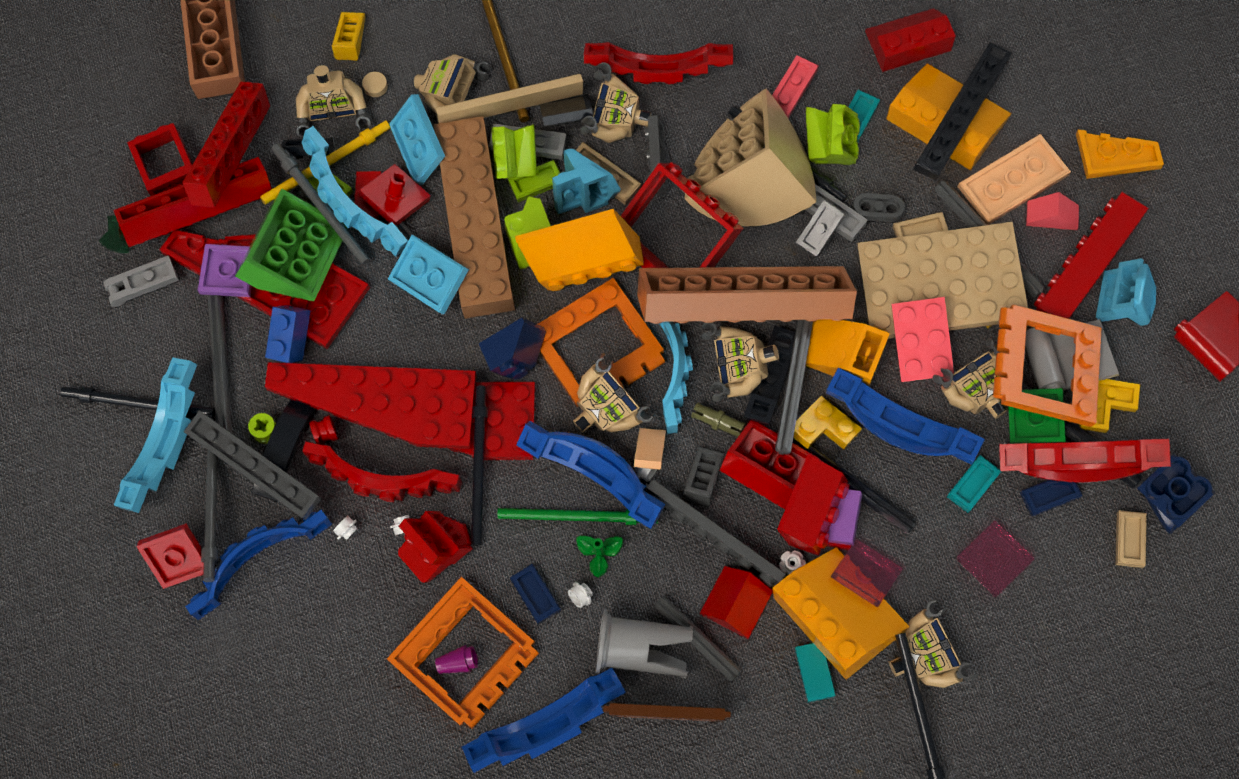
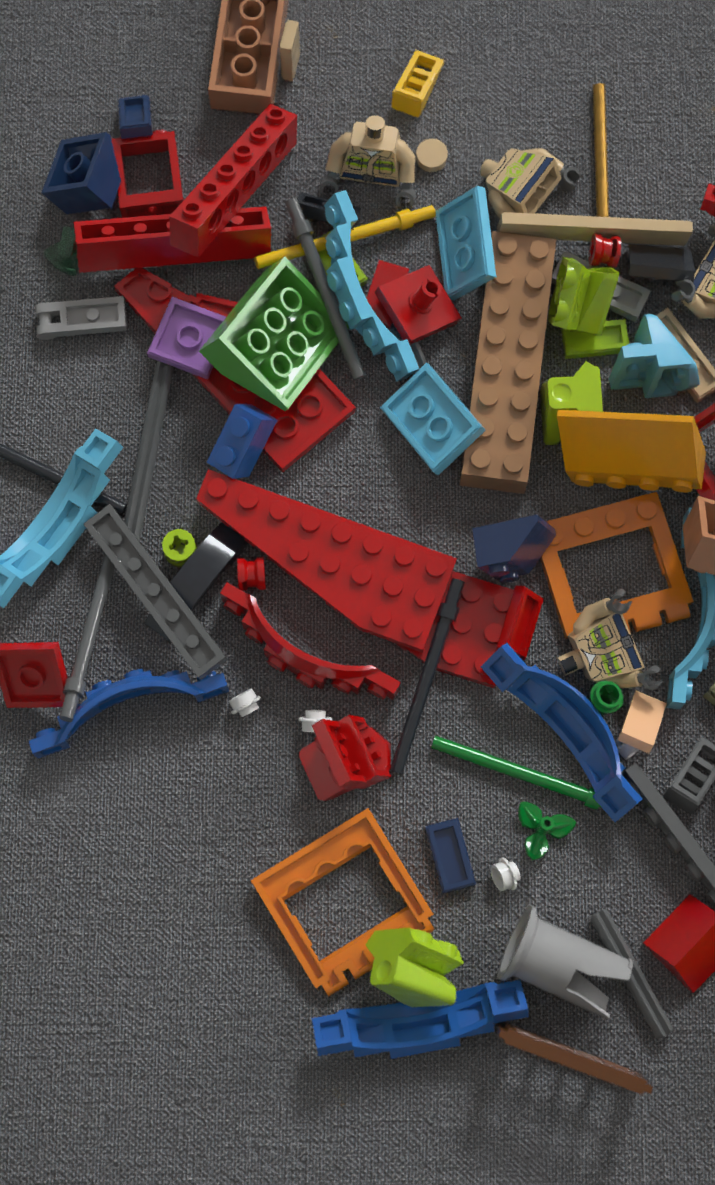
camera: 10 degrees right, 5 degrees up
(112, 174) = (83, 174): none -> dark blue slope
(141, 121) = (135, 116): none -> dark blue tile
(244, 39) = (289, 50): none -> tan tile
(459, 660) = (334, 909): magenta cone -> none
(519, 114) = (604, 250): none -> red wheel
(526, 682) = (413, 966): none -> lime piece
(538, 402) = (521, 620): none -> red tile
(617, 438) = (606, 697): none -> green cone

